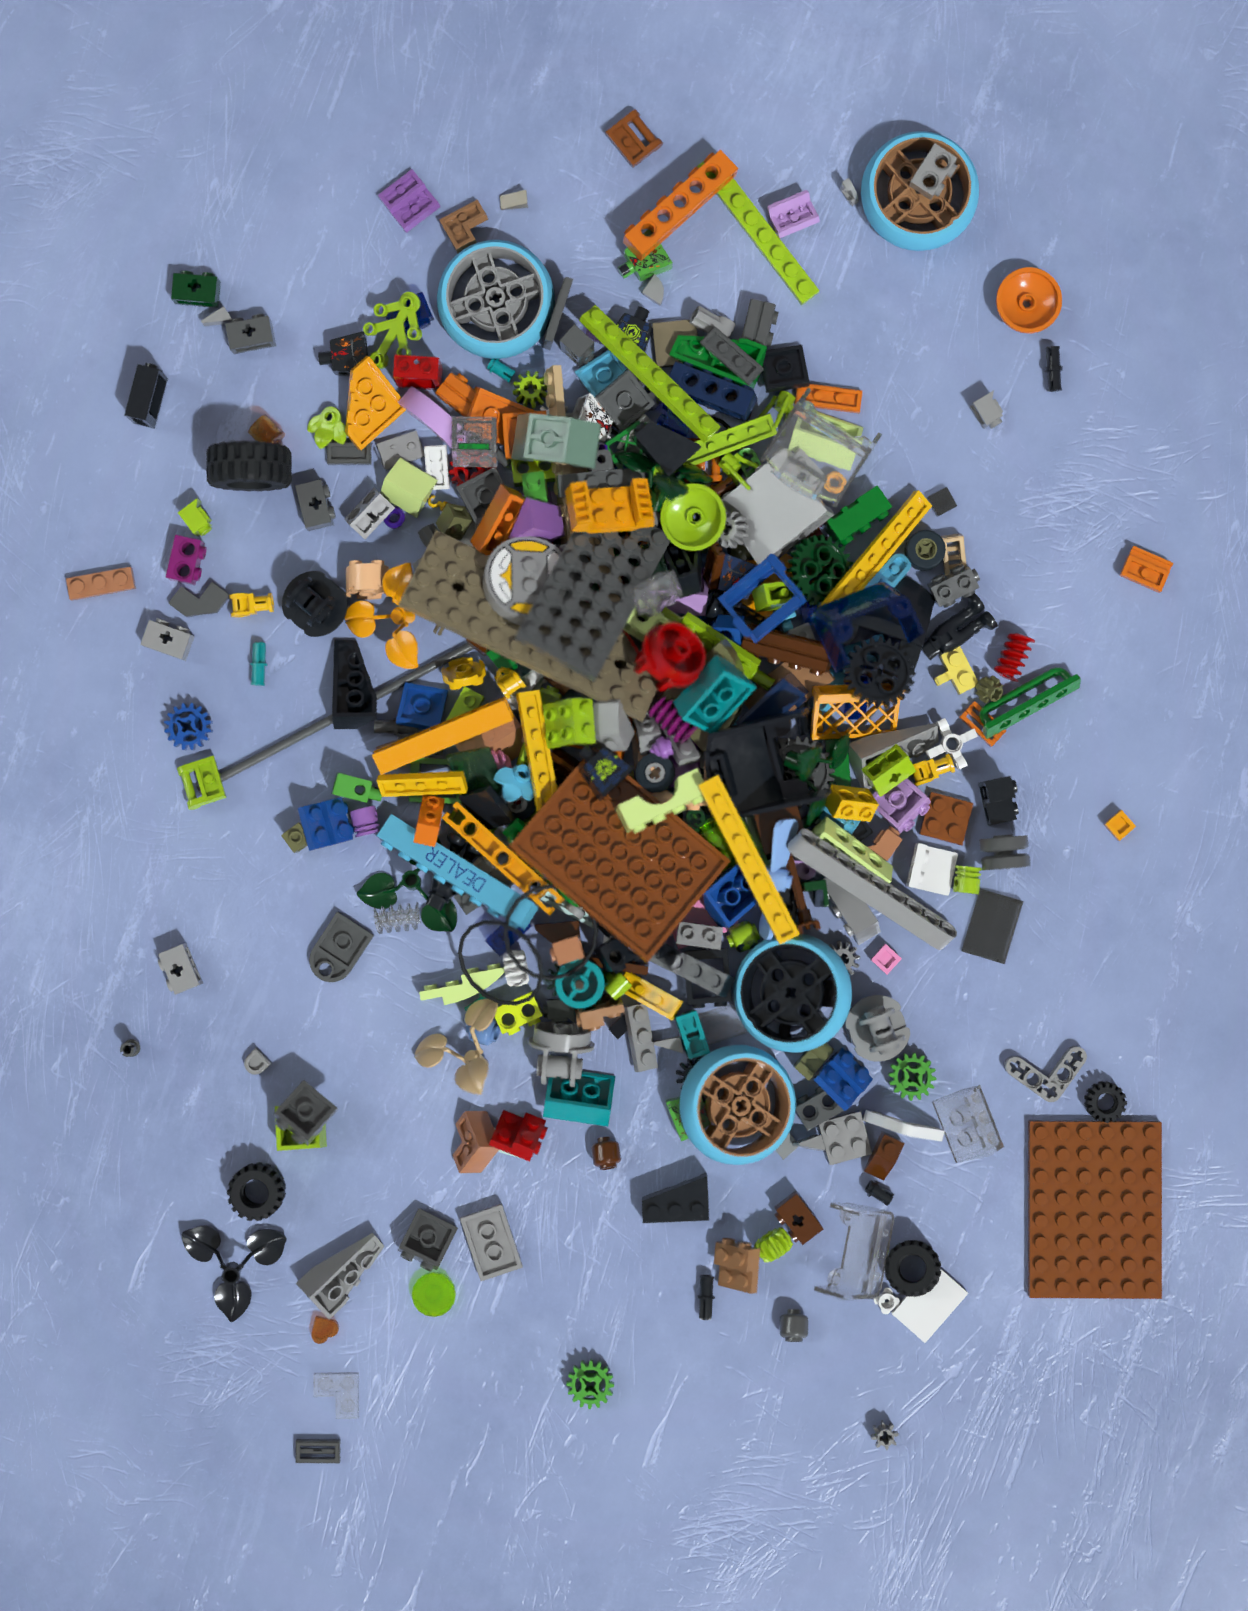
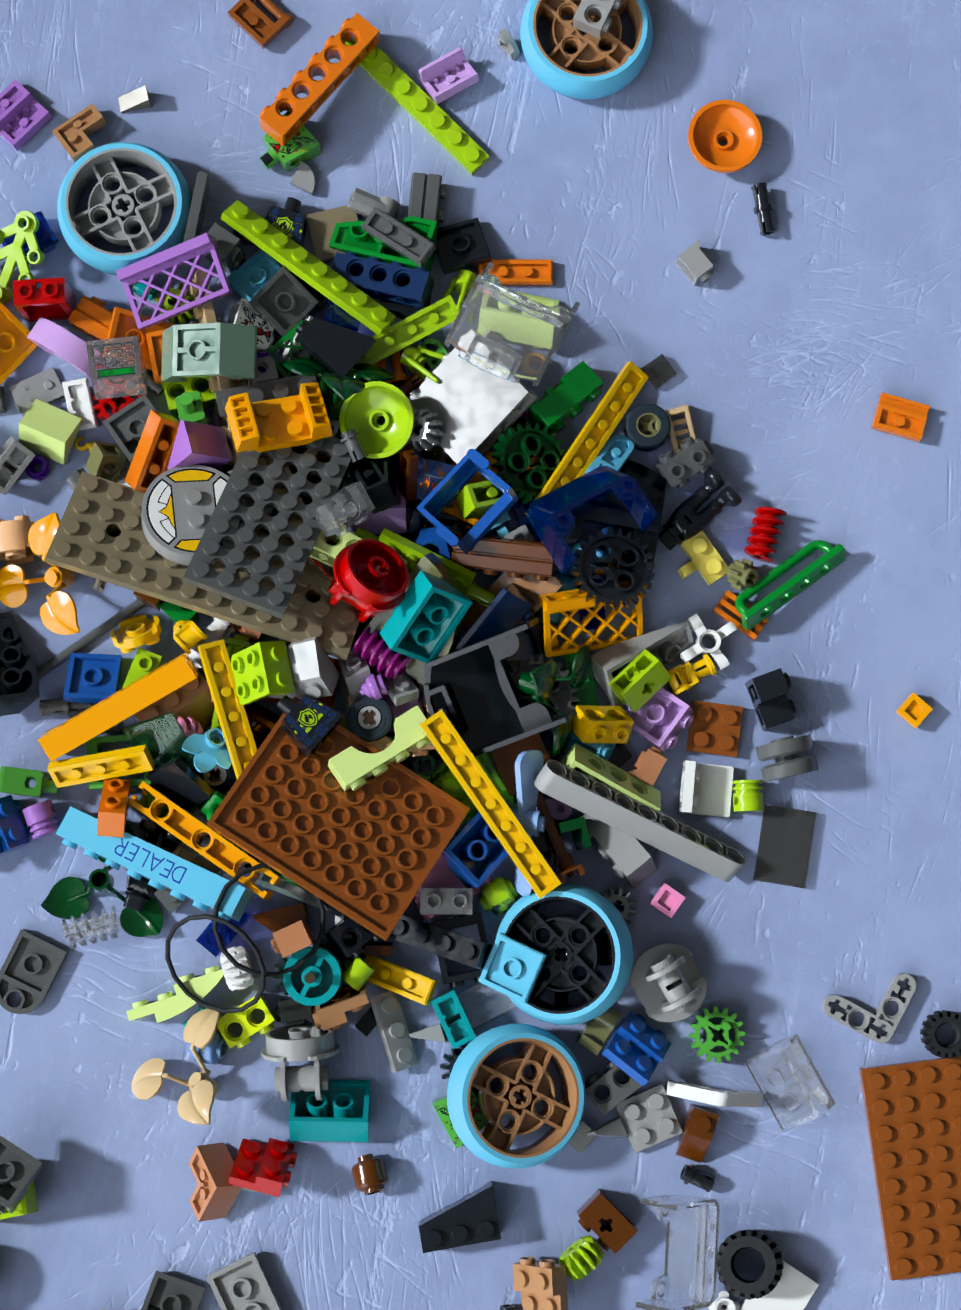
camera: 15 degrees left, 5 degrees down
(533, 353) = (172, 259): none -> medium lavender fence
(670, 536) = (353, 445): none -> dark grey pin
(748, 998) = (512, 968): none -> medium azure tile

